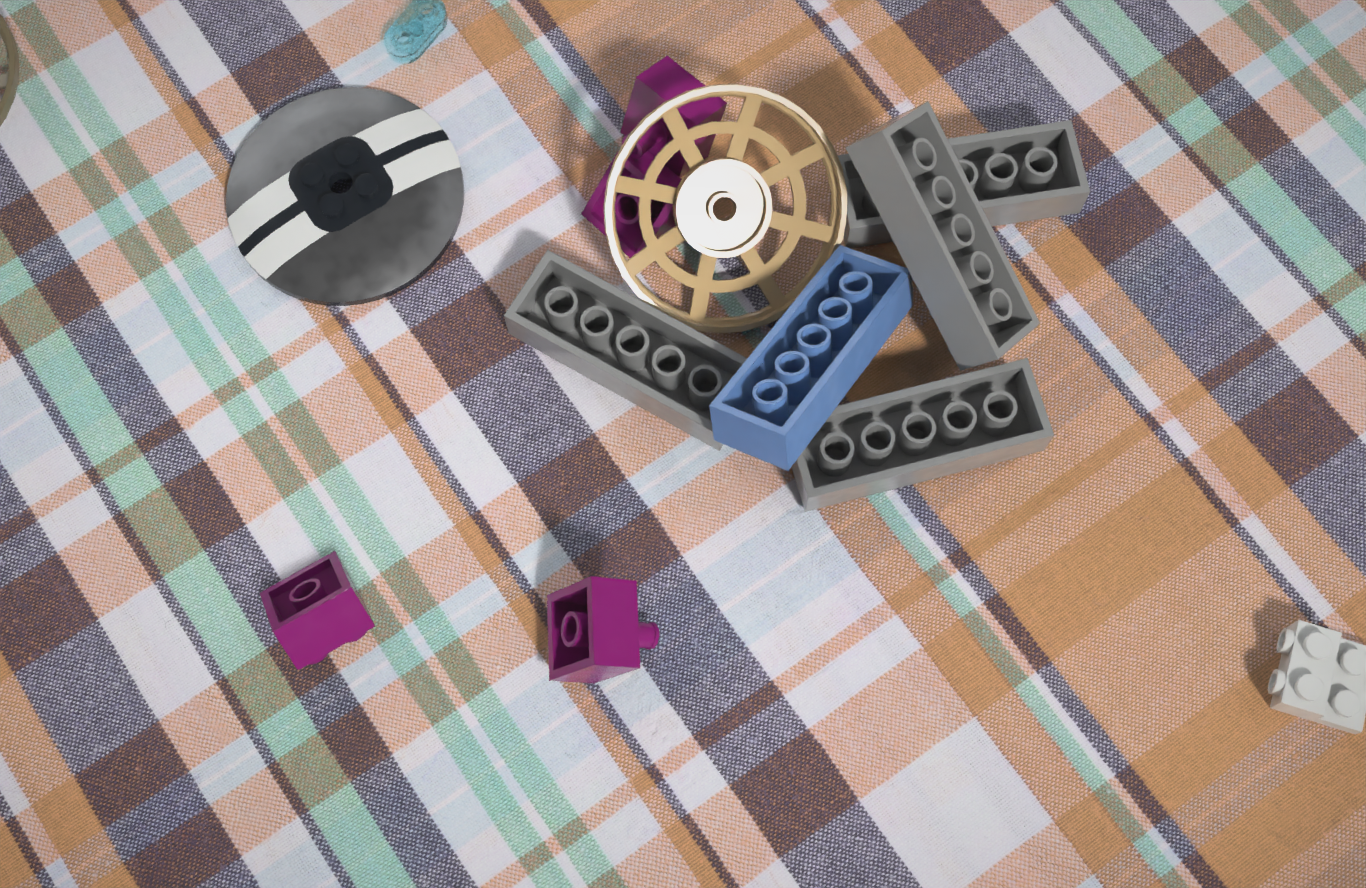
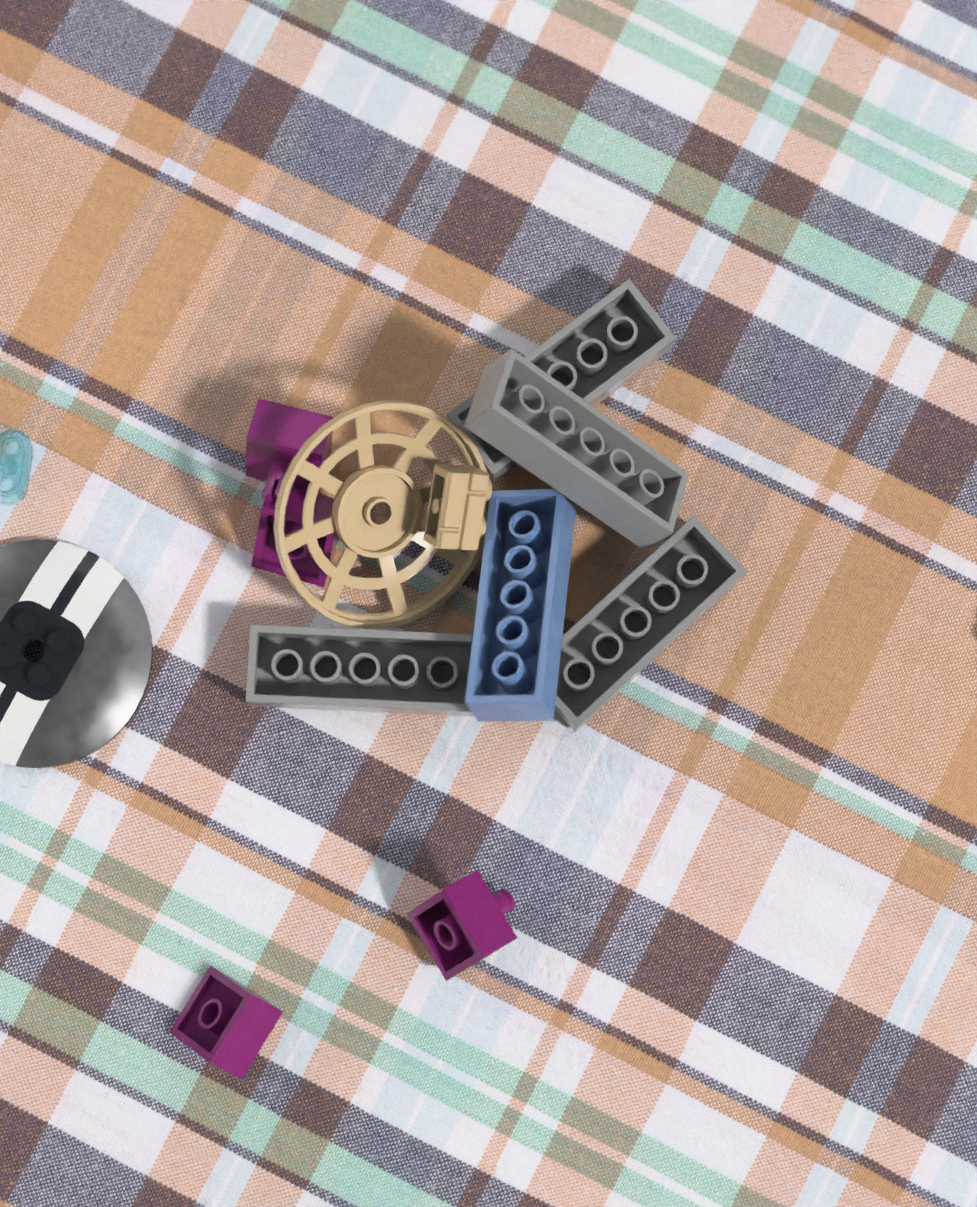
camera: 30 degrees left, 10 degrees up
(801, 236) = (457, 507): none -> tan brick

